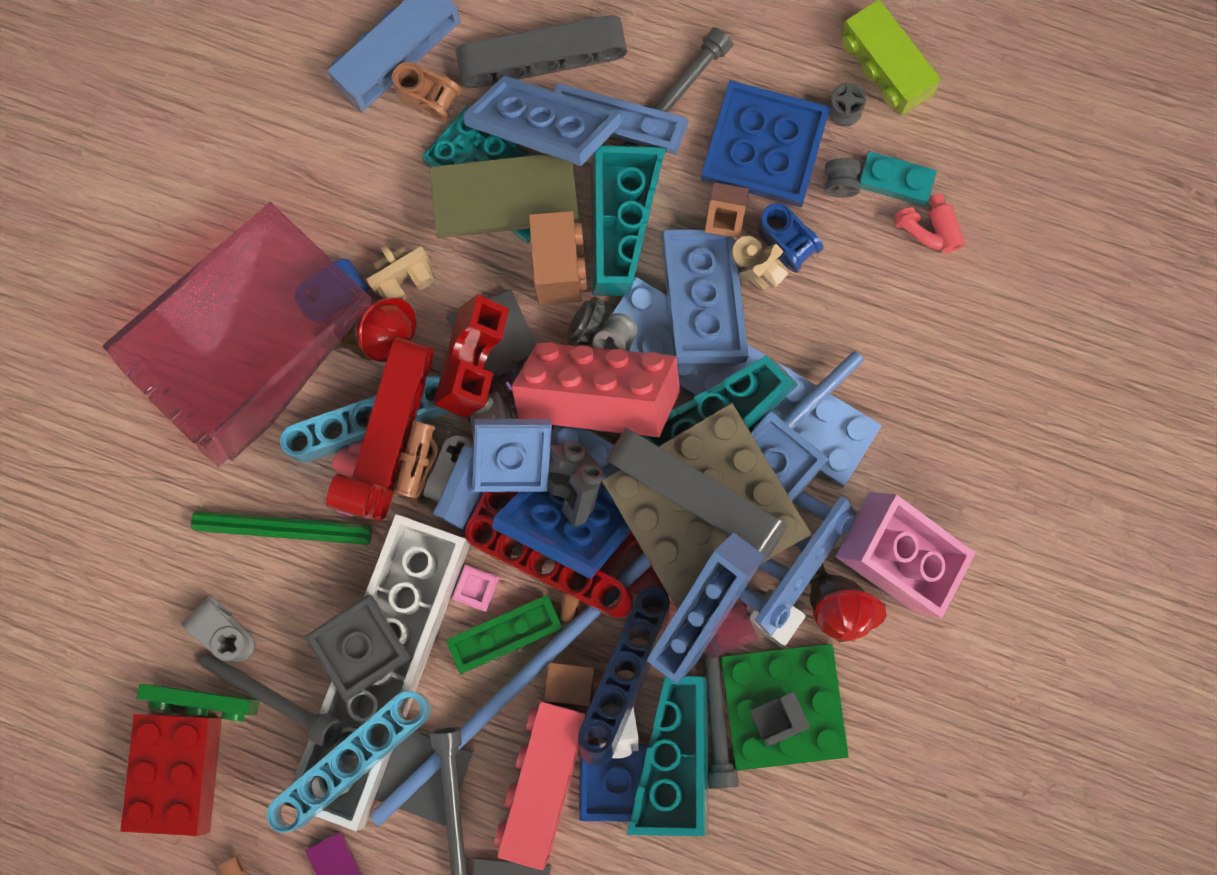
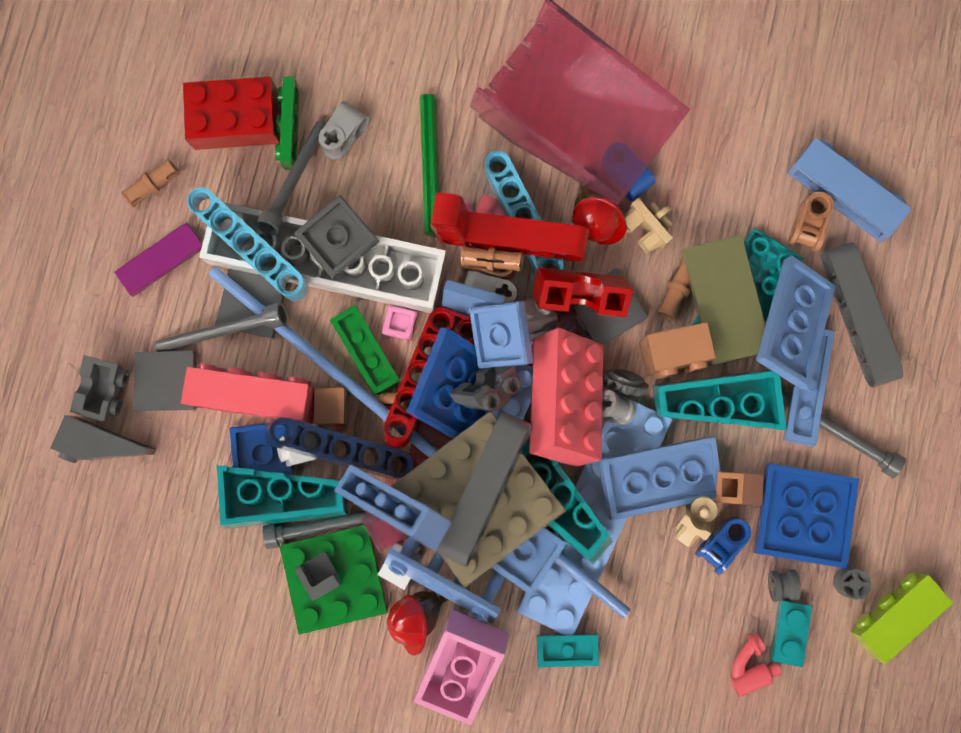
camera: 85 degrees right, 5 degrees up
(486, 252) = (677, 291): none -> nougat pin
(895, 431) = (567, 650): none -> teal plate

